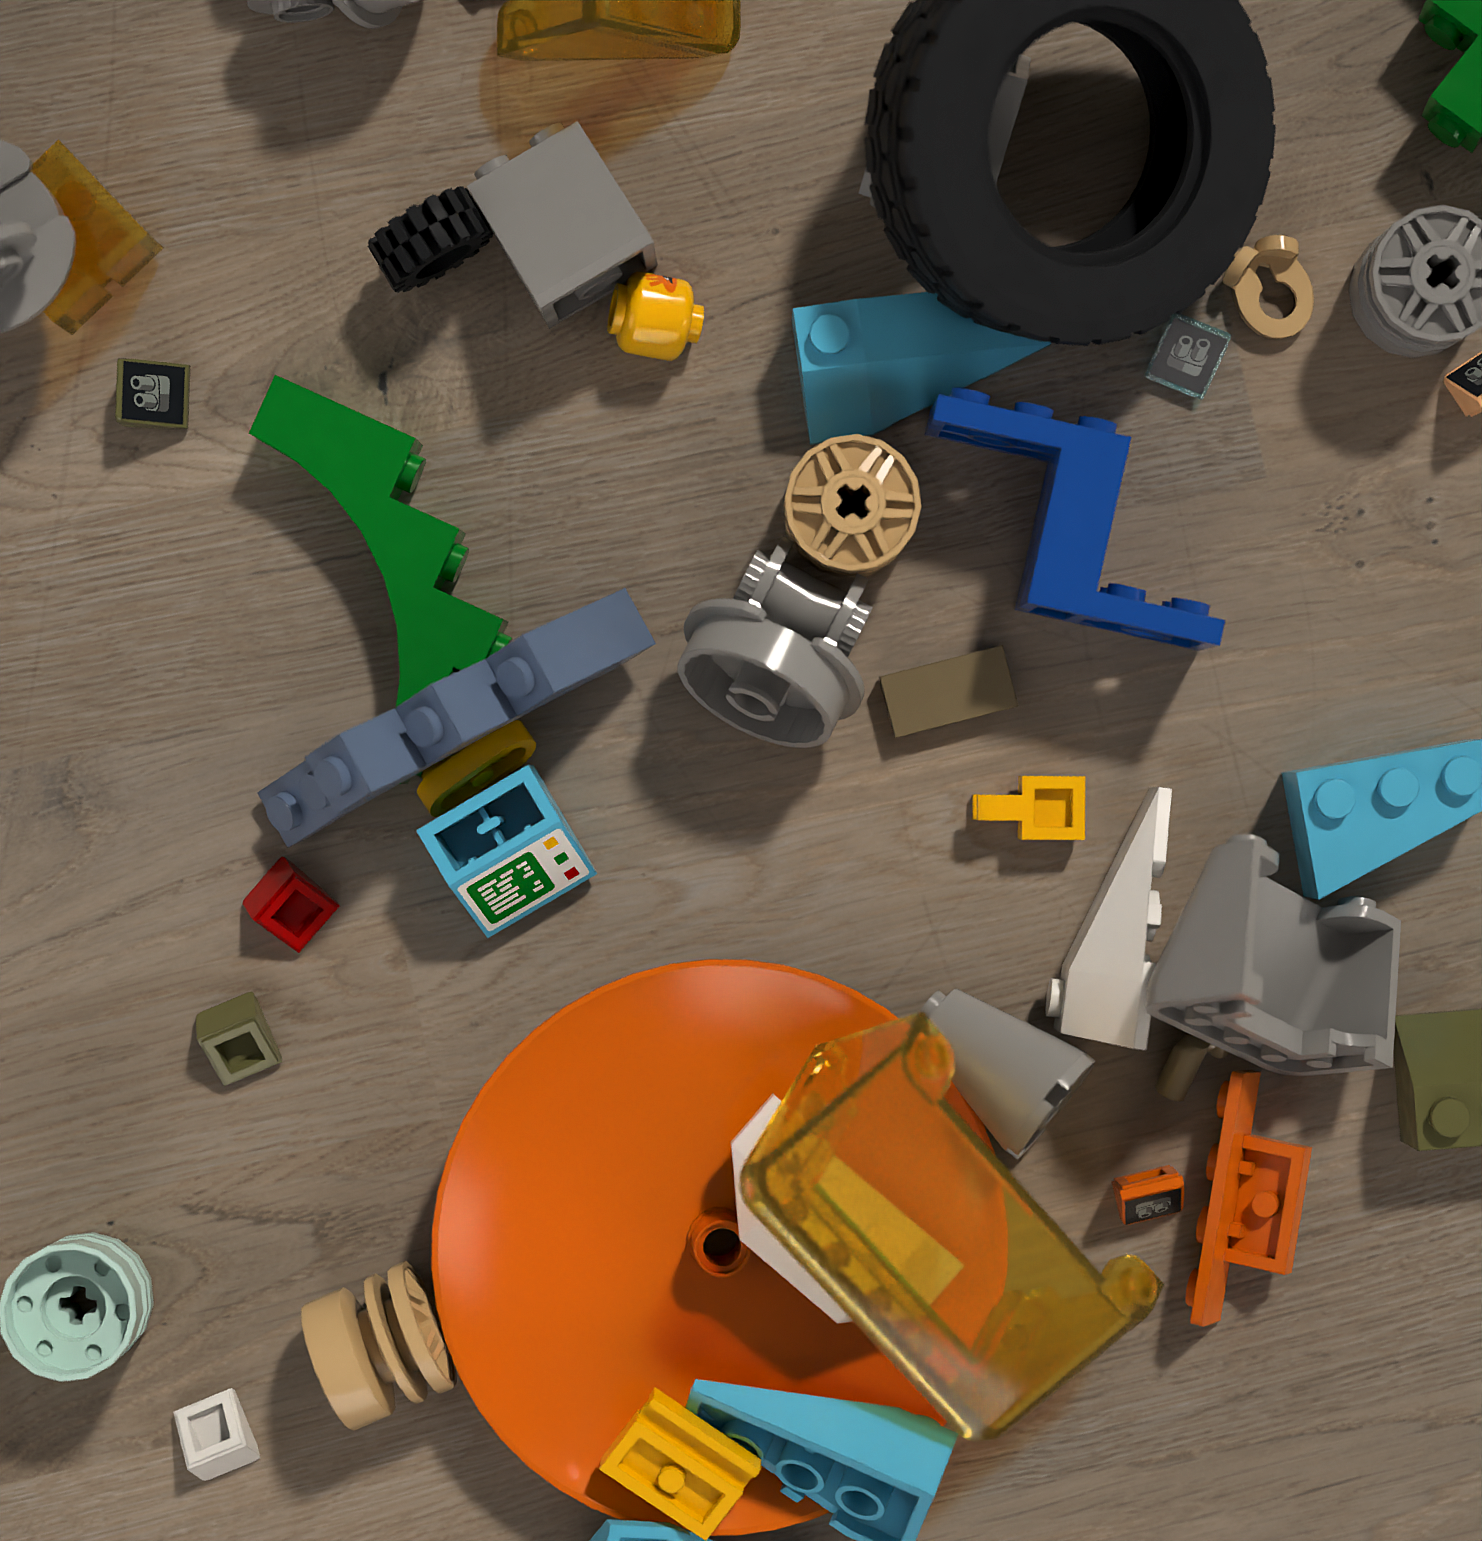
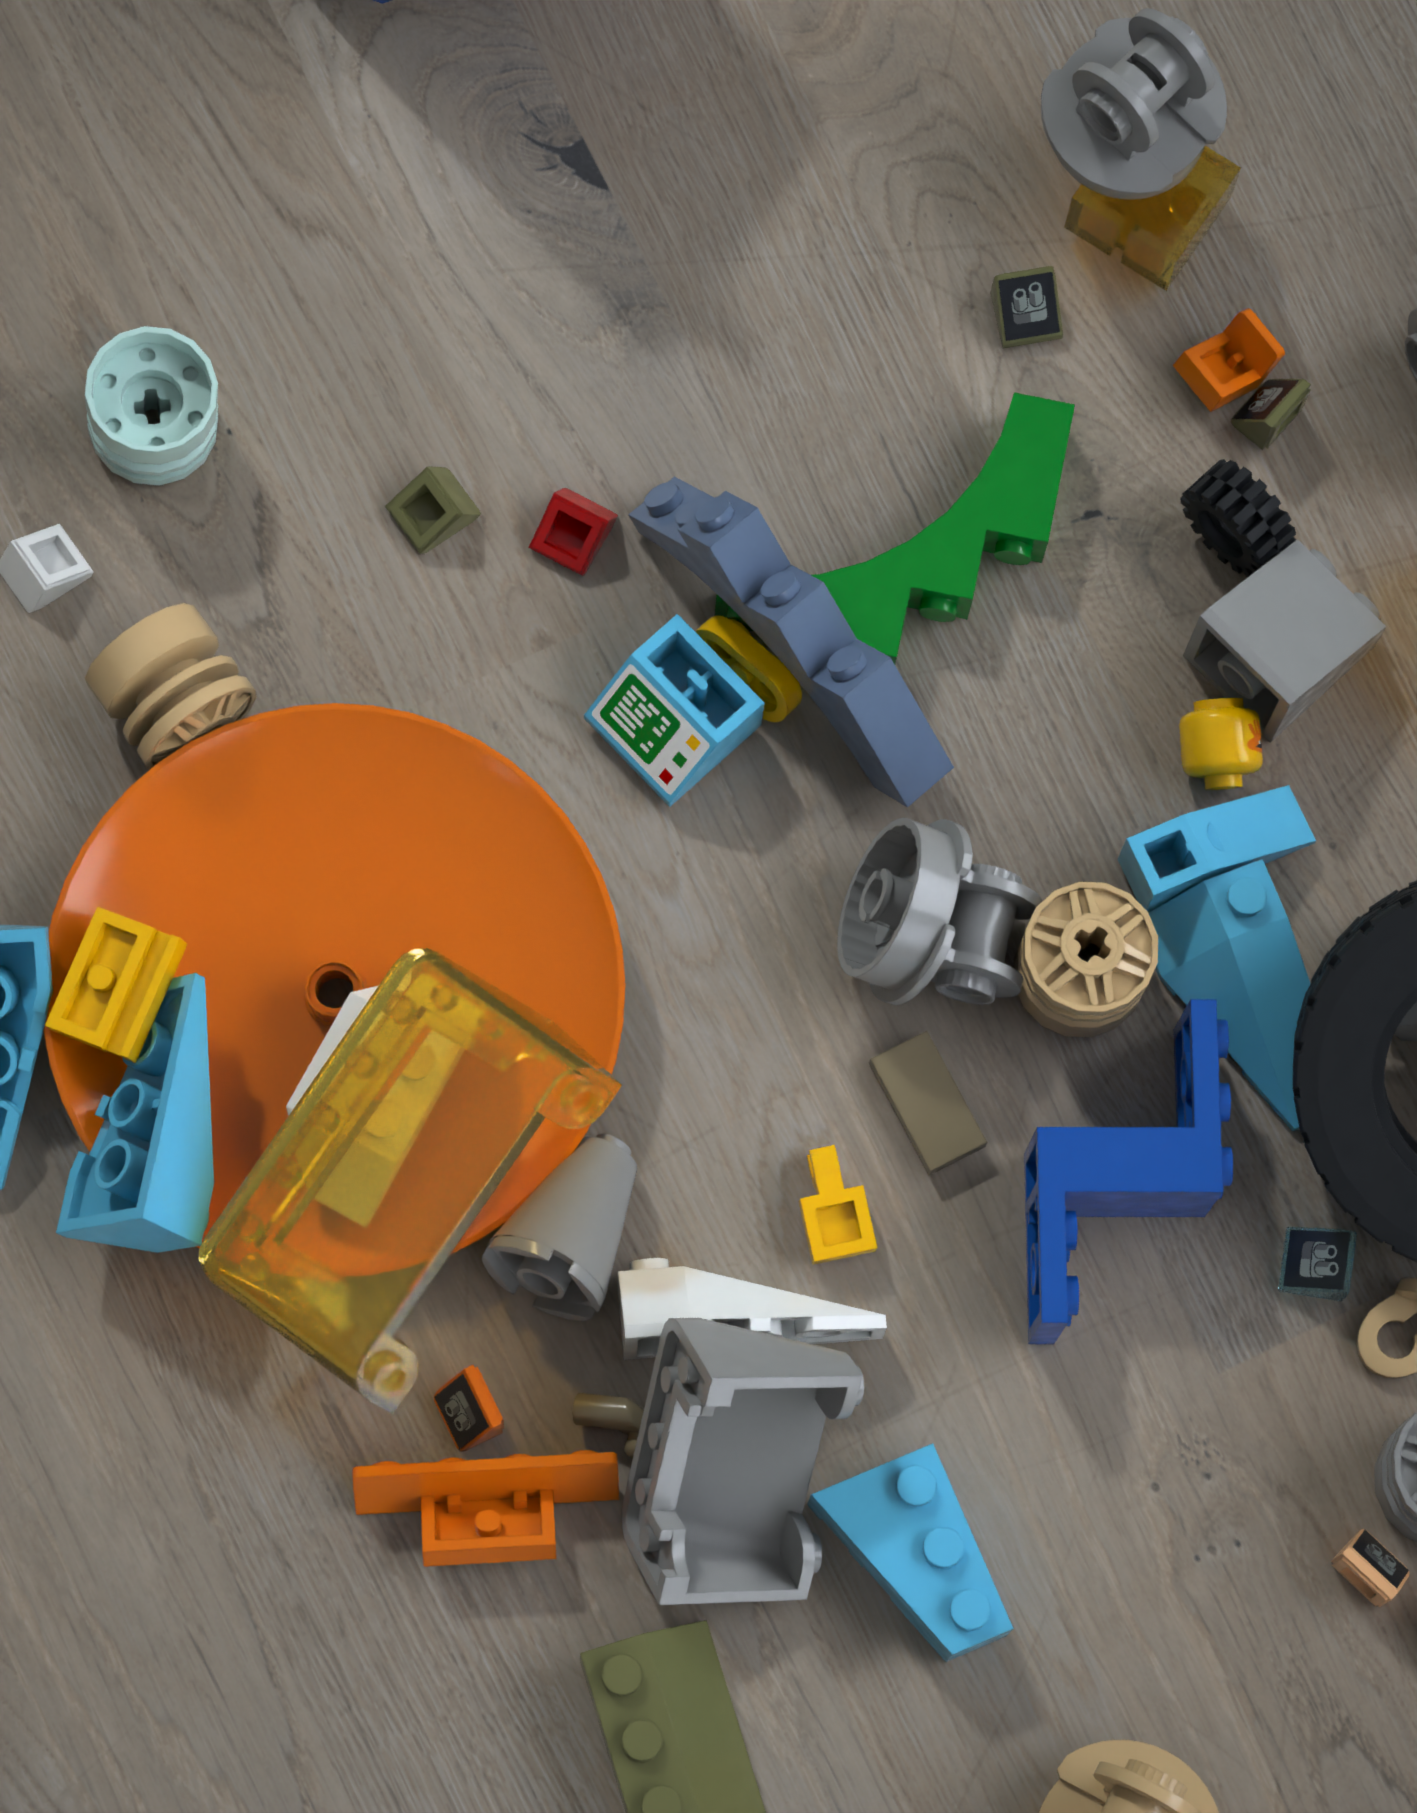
camera: 70 degrees right, 15 degrees down
(257, 203) = (1230, 361): none -> orange bracket
(313, 175) = (1271, 410): none -> olive slope
(760, 347) = (1212, 842): none -> medium azure slope

